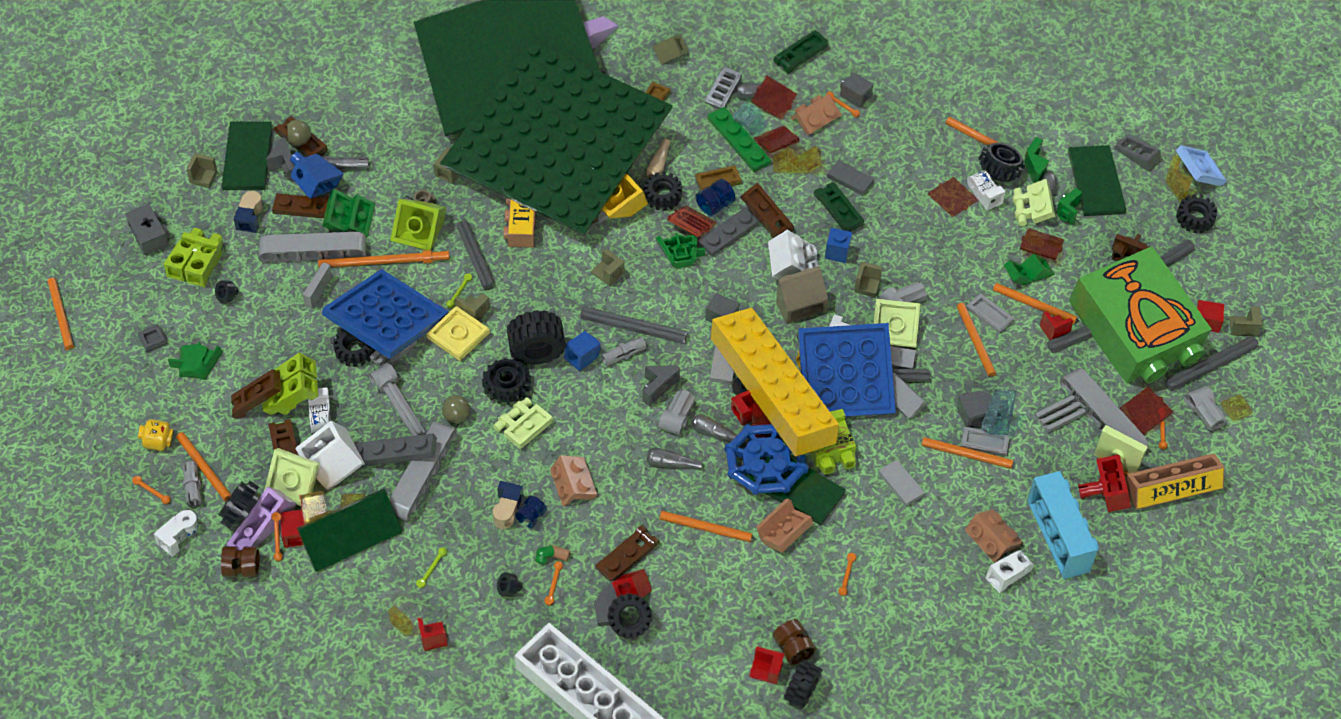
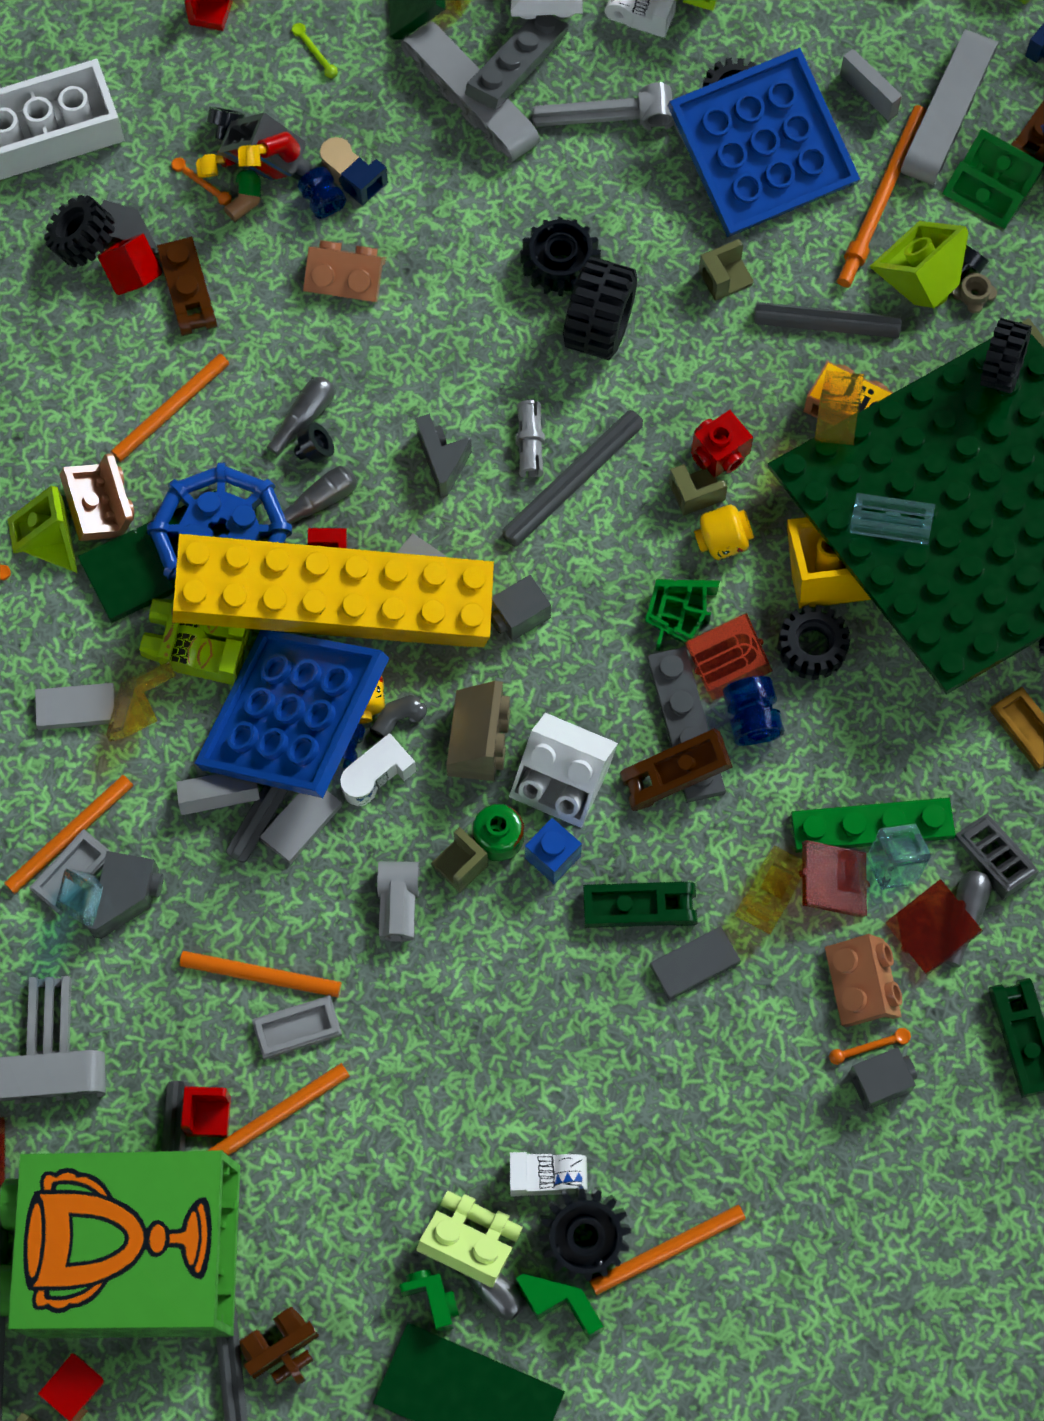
camera: 120 degrees right, 15 degrees up
(455, 409) = (545, 169): olive piece -> none
(458, 333) = (683, 231): light yellow plate -> none
(467, 278) = (789, 294): lime hinge -> none
(477, 143) = (1005, 355): none -> black tyre
(525, 545) = (259, 146): none -> torso
(527, 426) = (468, 253): yellowish green plate -> none
(530, 212) = (839, 407): none -> clear yellow slope
(579, 264) = (721, 444): none -> red brick
(582, 350) = (557, 377): blue brick -> none
(596, 174) = (892, 524): none -> clear light blue tile
(627, 246) = (724, 532): none -> yellow head
(659, 159) = (879, 666): tan piece -> none
(676, 415) = (371, 451): light grey piece -> none
(688, 443) = (314, 443): none -> black tile
(729, 174) = (801, 747): pearl gold tile -> none
(816, 544) = (44, 530): none -> lime slope
(844, 269) = (500, 844): none -> green head
(883, 450) = (132, 707): none -> clear yellow slope
(902, 320) = (351, 853): yellowish green plate -> none
(952, 196) = (568, 1116): clear red piece -> none
(1029, 271) = (341, 1143): green slope -> none
(1041, 244) = (382, 1201): clear red piece -> none

